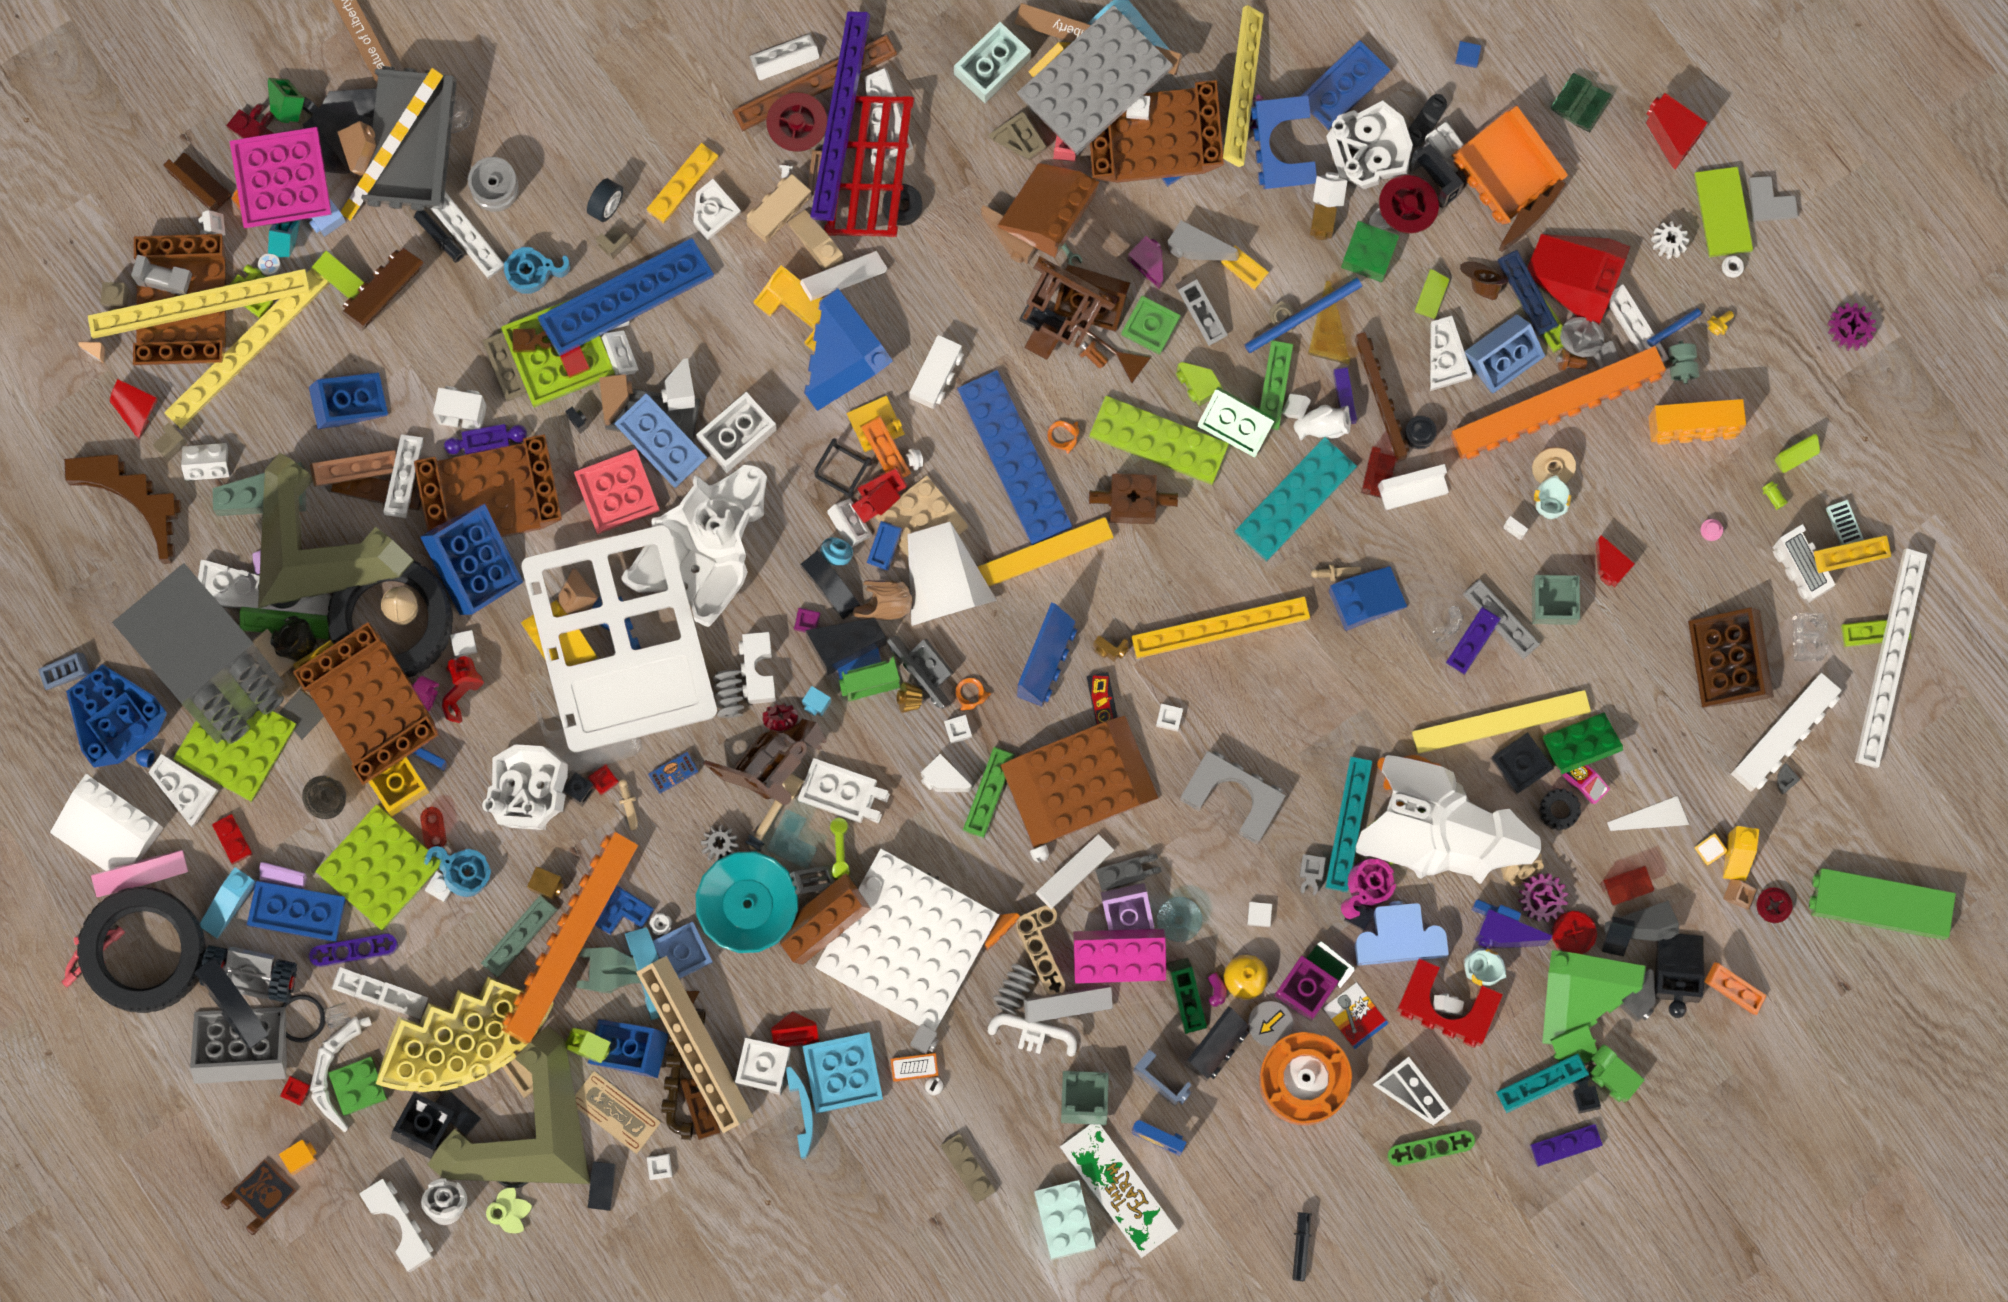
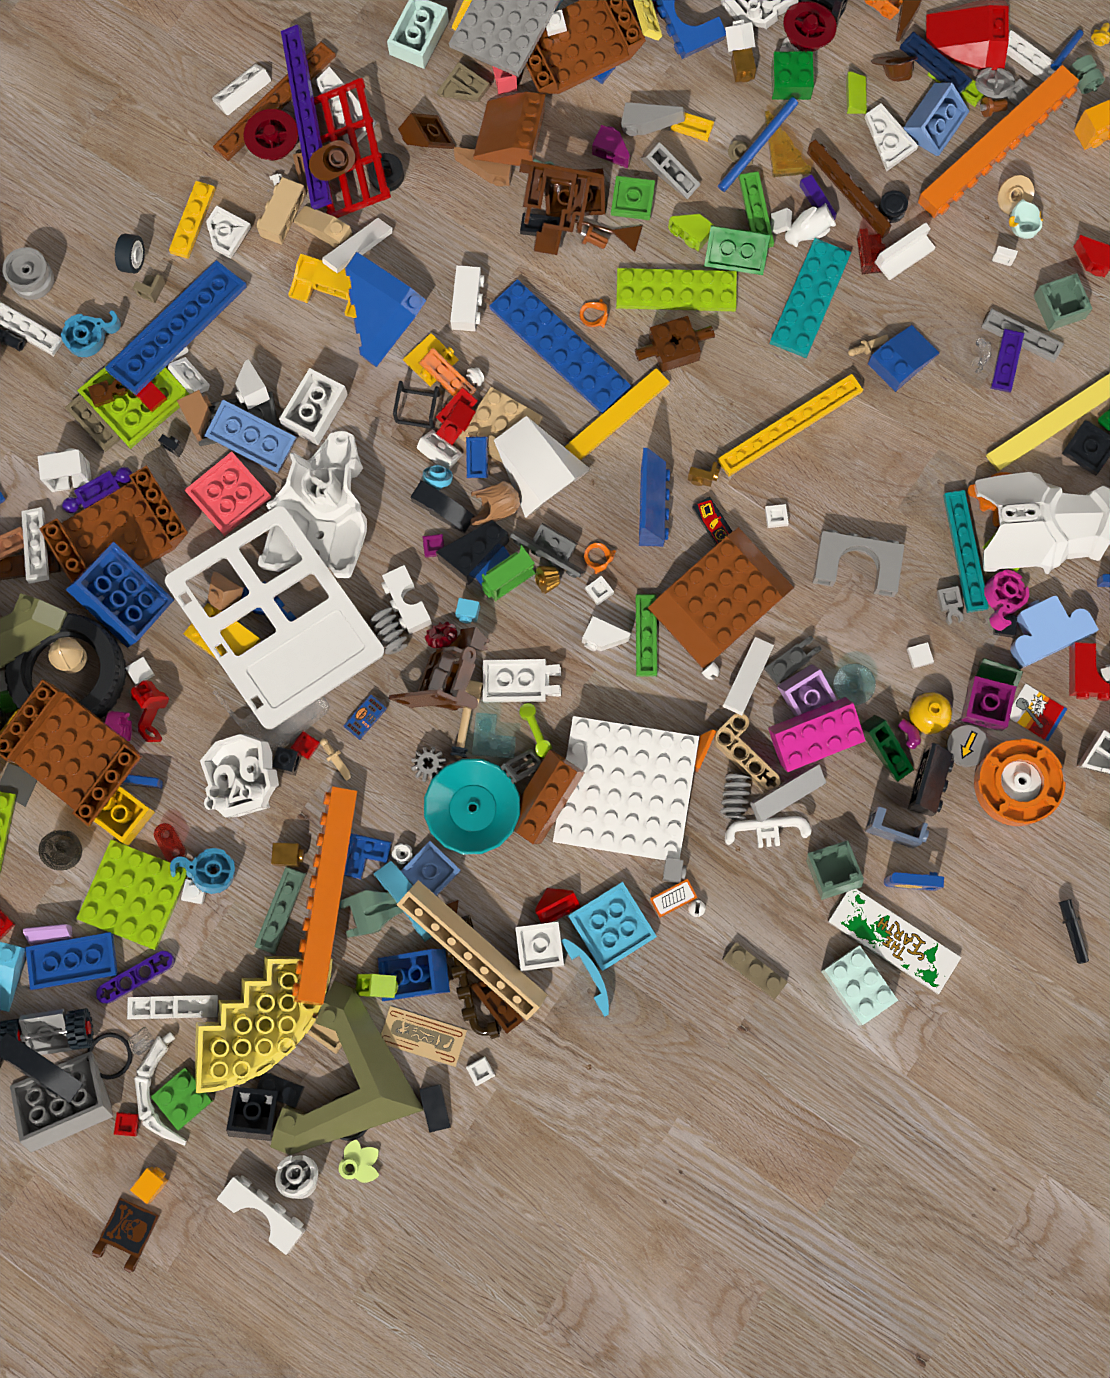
camera: 15 degrees left, 0 degrees up
(848, 178) = (332, 160): none -> reddish brown piece
(960, 177) = (425, 131): none -> reddish brown slope

